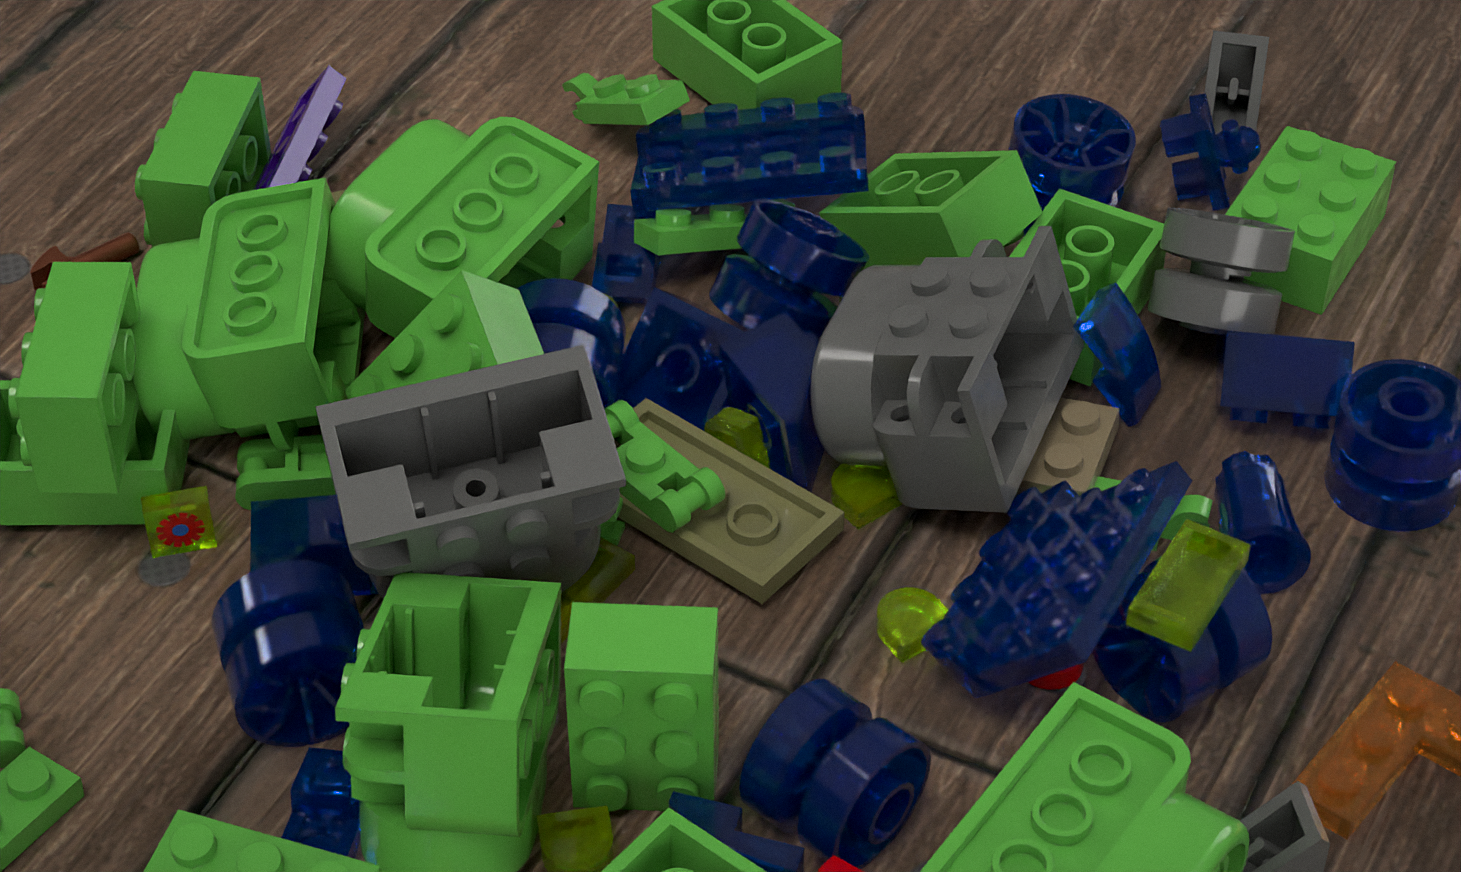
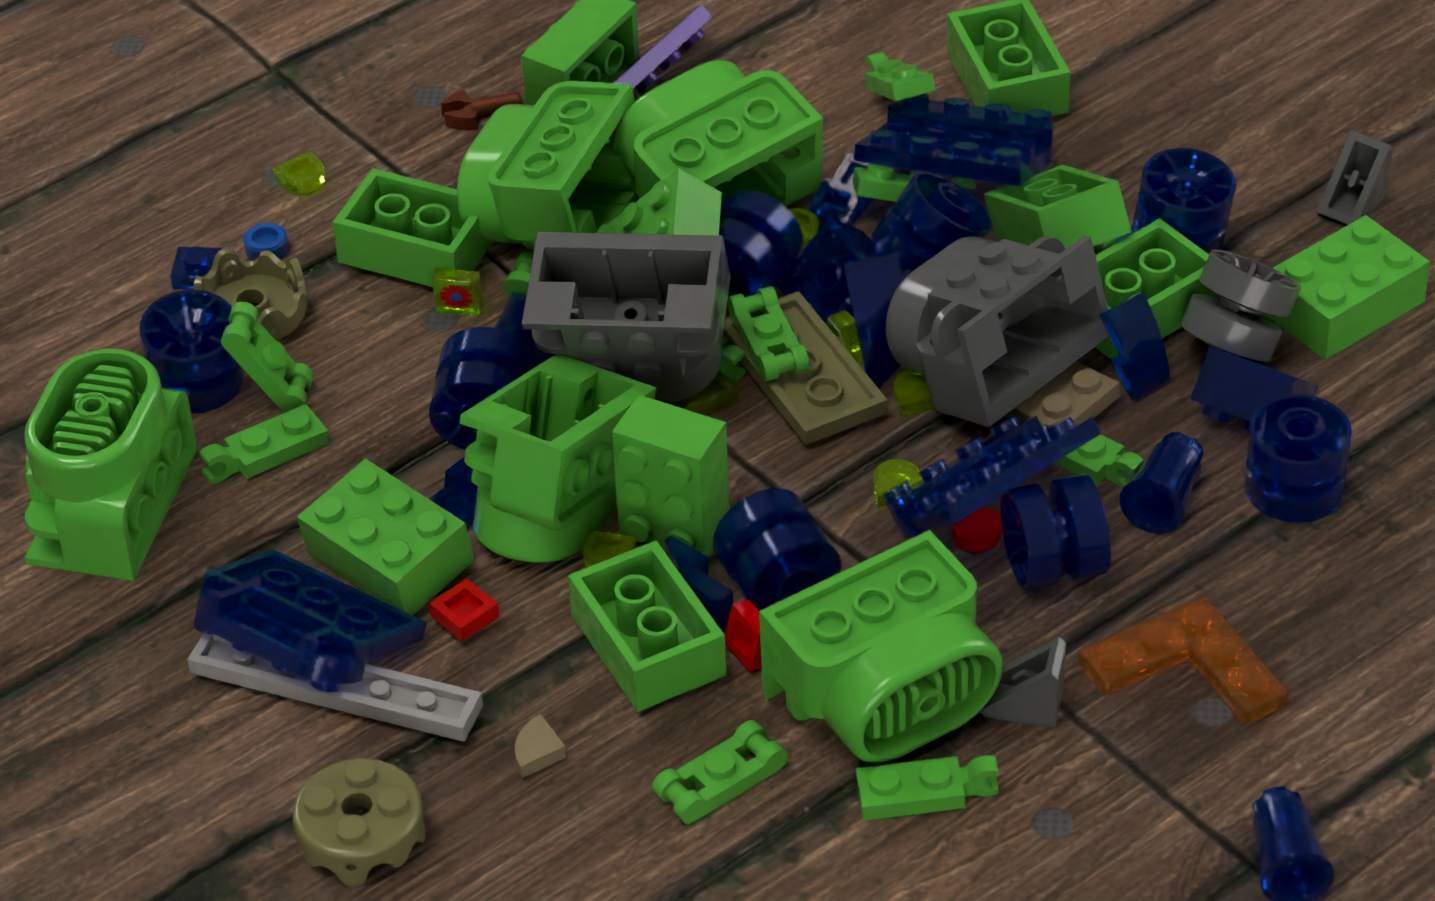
camera: 25 degrees right, 0 degrees up
(78, 378) = (415, 179): bright green brick -> none
(1188, 585) = (1053, 496): clear neon green tile -> none
(1196, 132) = (1304, 218): clear blue hips -> none

